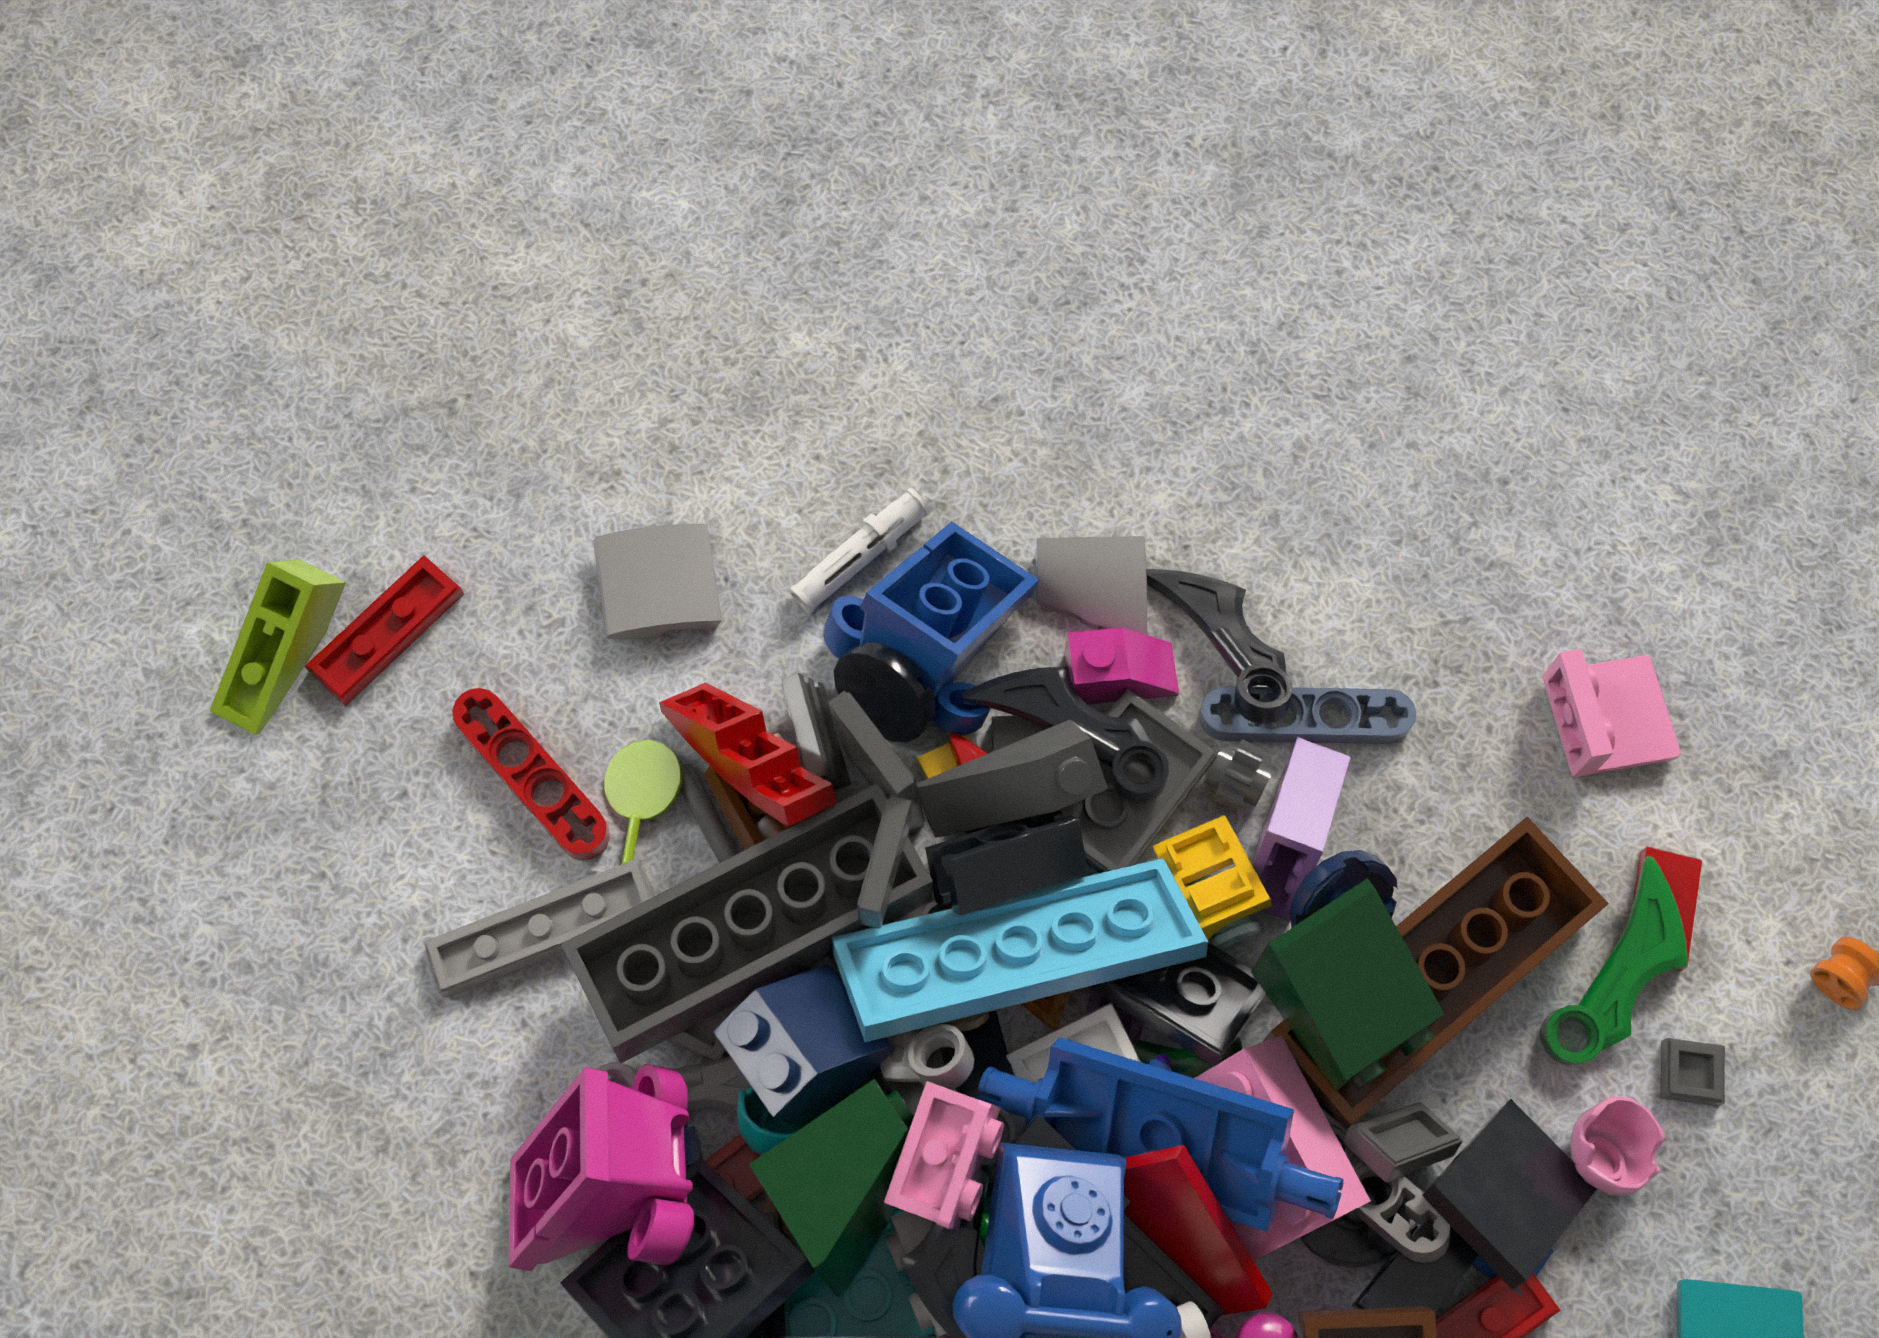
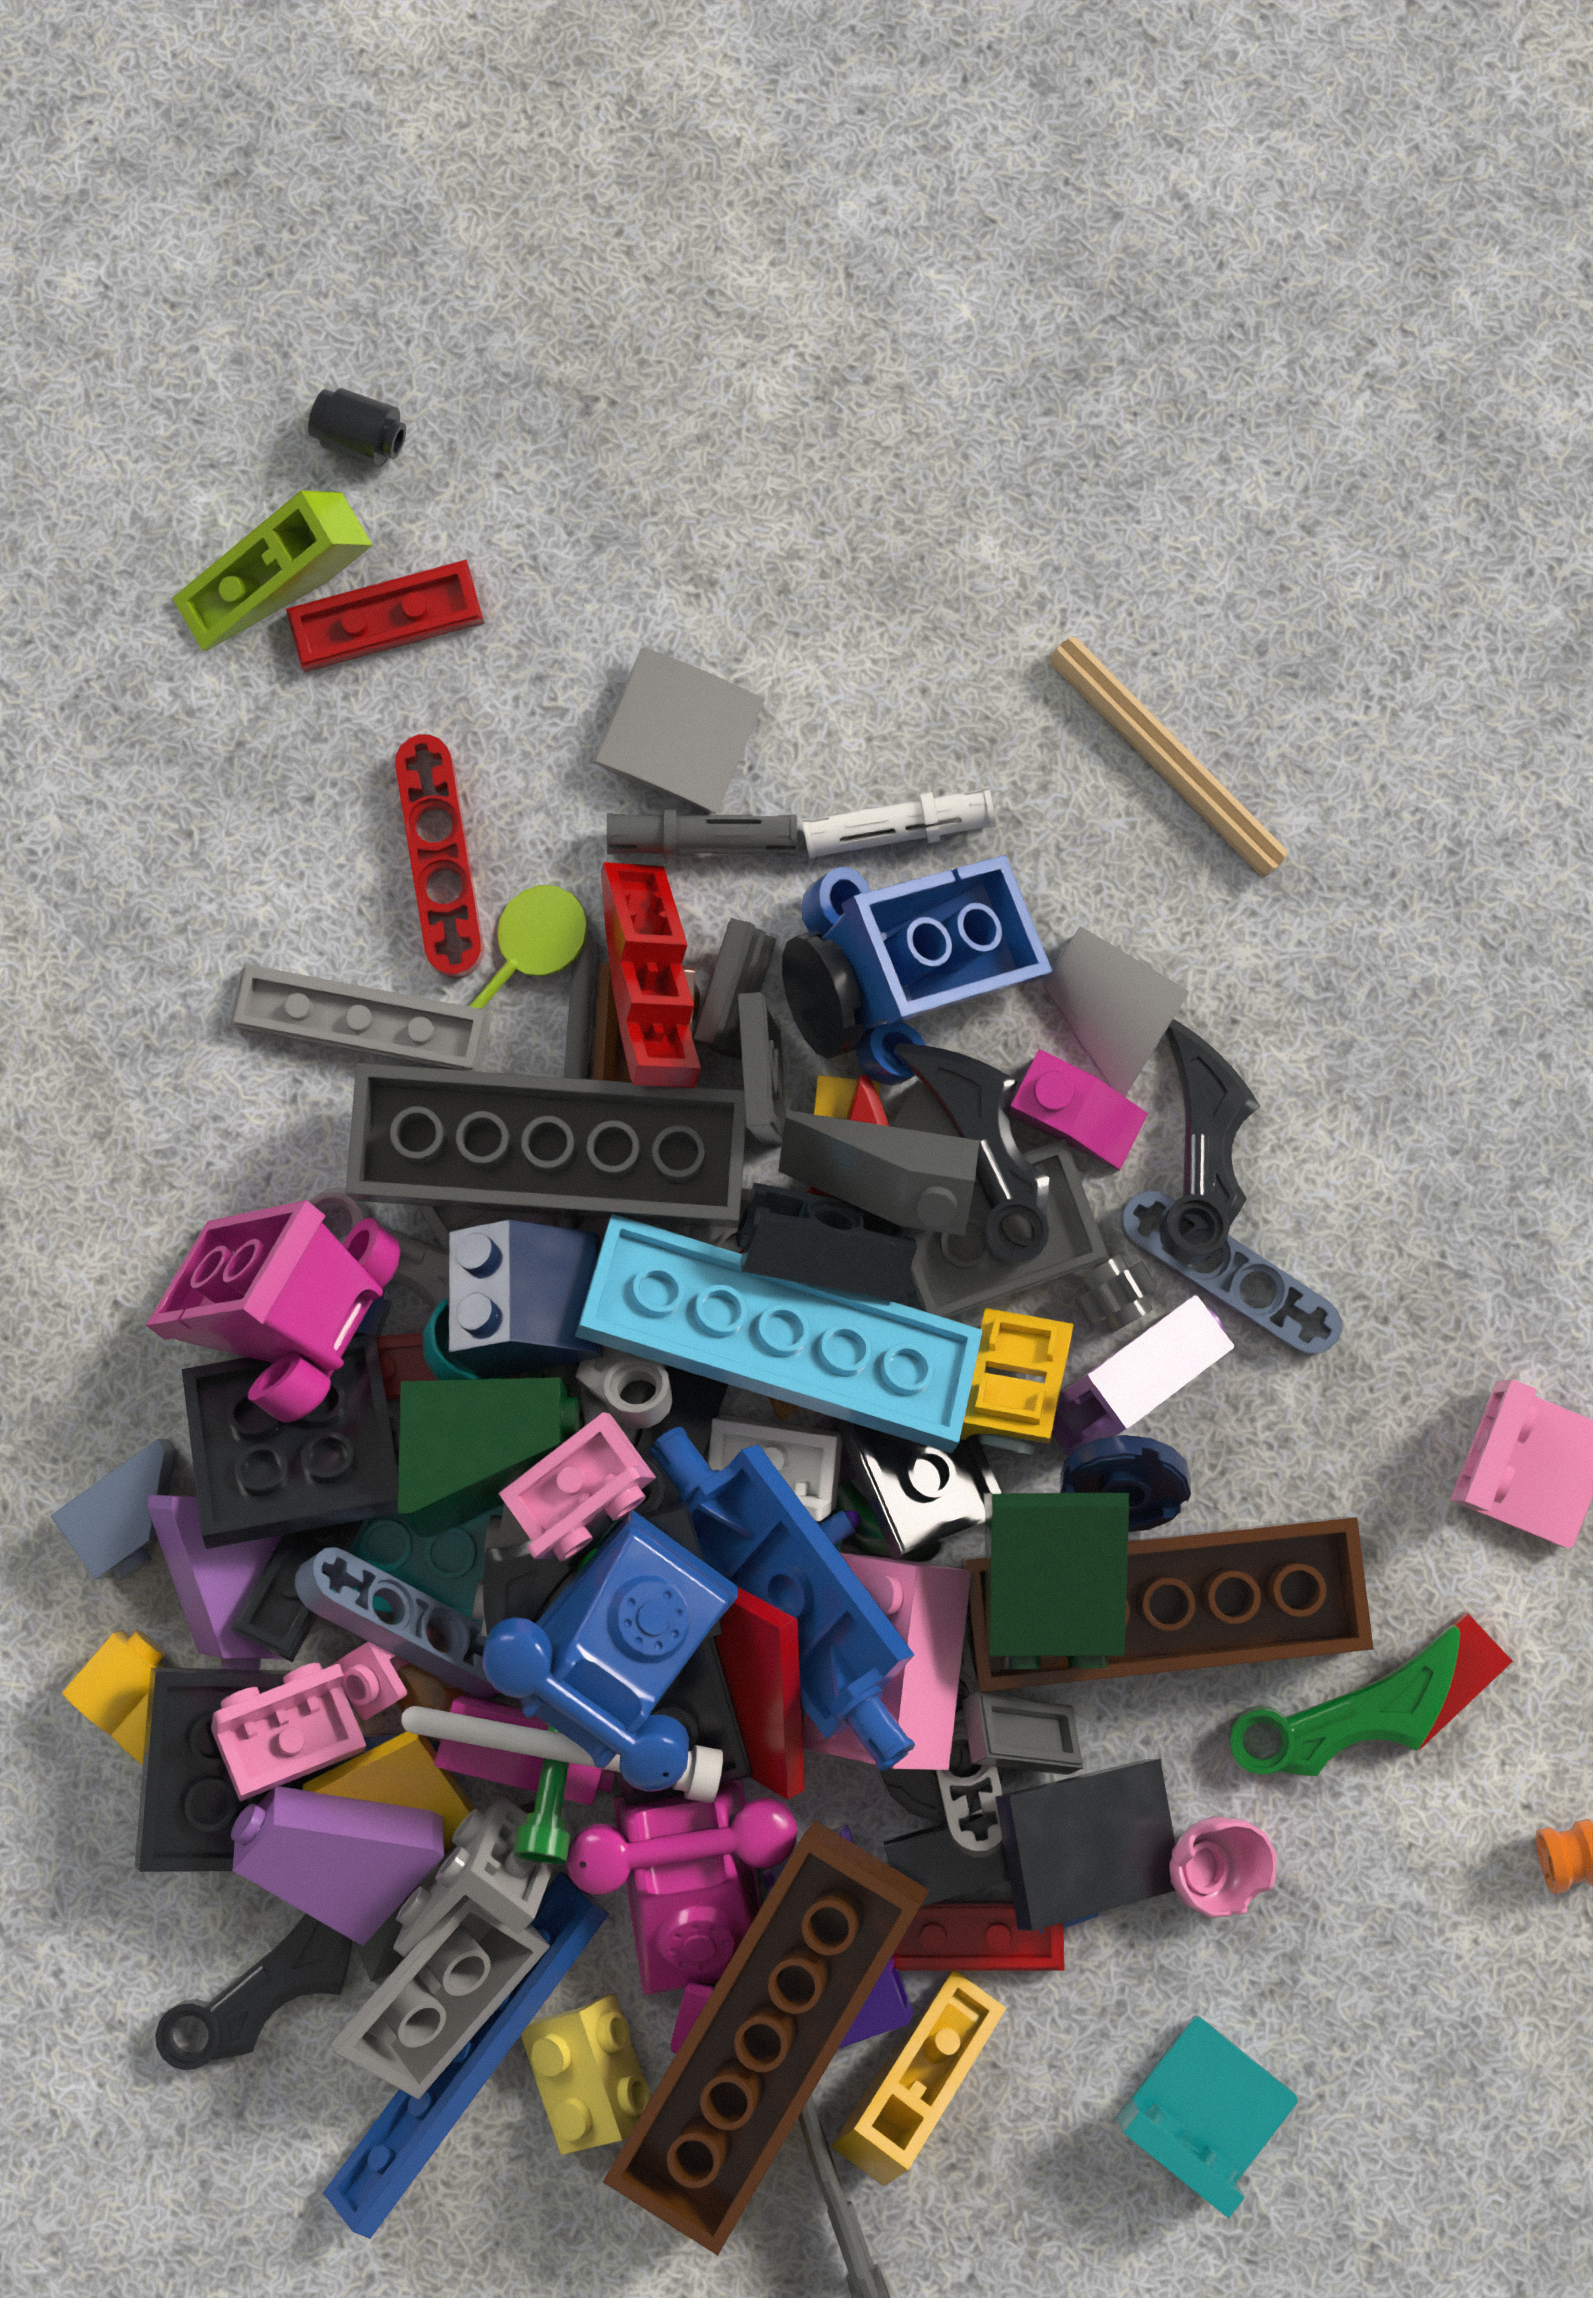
camera: 35 degrees right, 15 degrees up
(284, 510) = (357, 426): none -> black brick
(730, 635) = (714, 834): none -> dark grey pin
(884, 862) = (700, 1178): dark grey tile -> none
(1019, 399) = (1168, 756): none -> tan axle
(1692, 1072) = (1352, 1845): dark grey tile -> none

